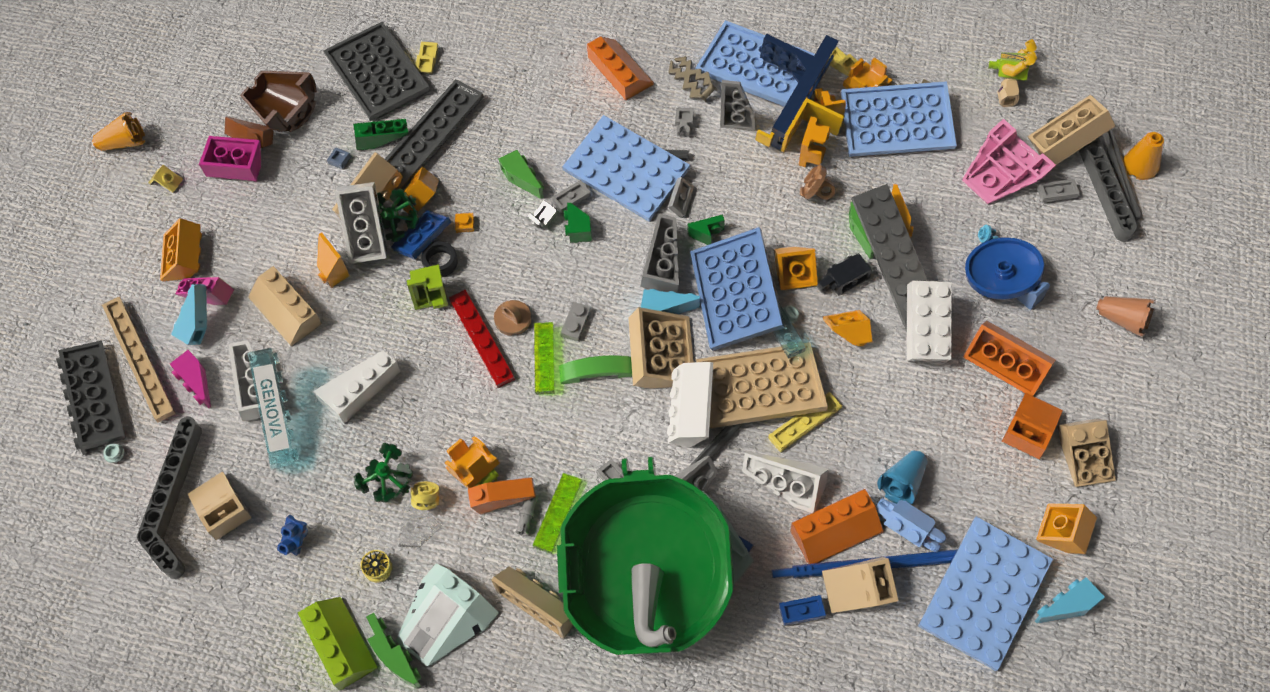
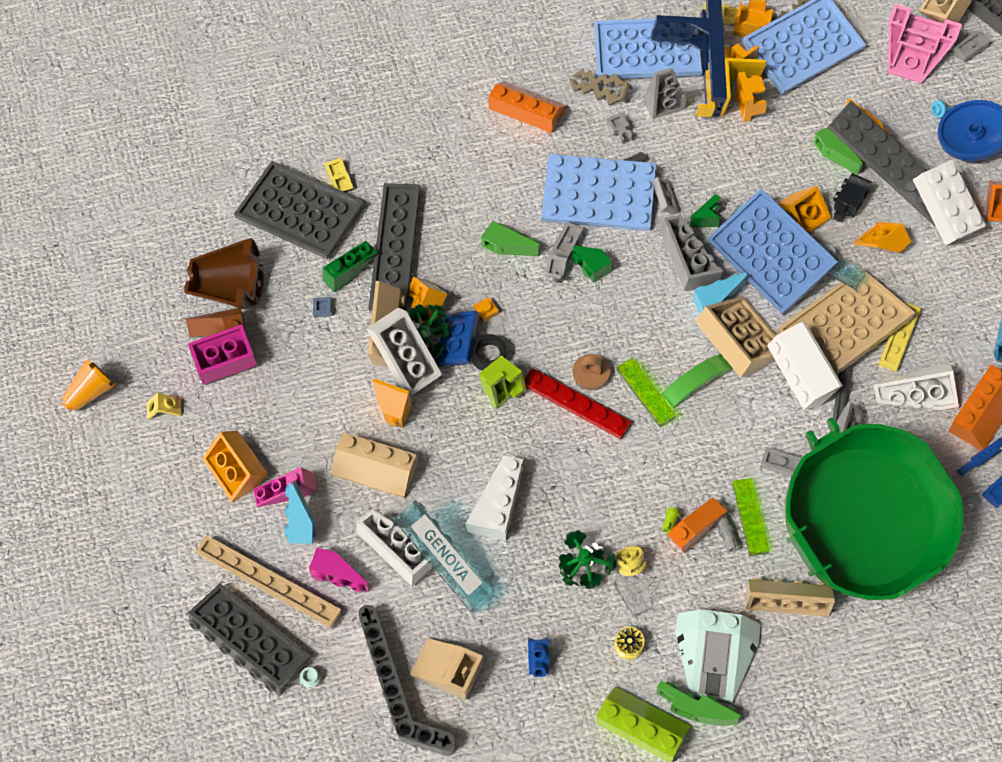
camera: 30 degrees left, 0 degrees up
(470, 463) = (650, 512): light orange panel -> none
(575, 321) = (649, 347): light grey plate -> none
(645, 592) = (882, 534): light grey animal -> none
(815, 182) = (773, 130): medium nougat tile -> none

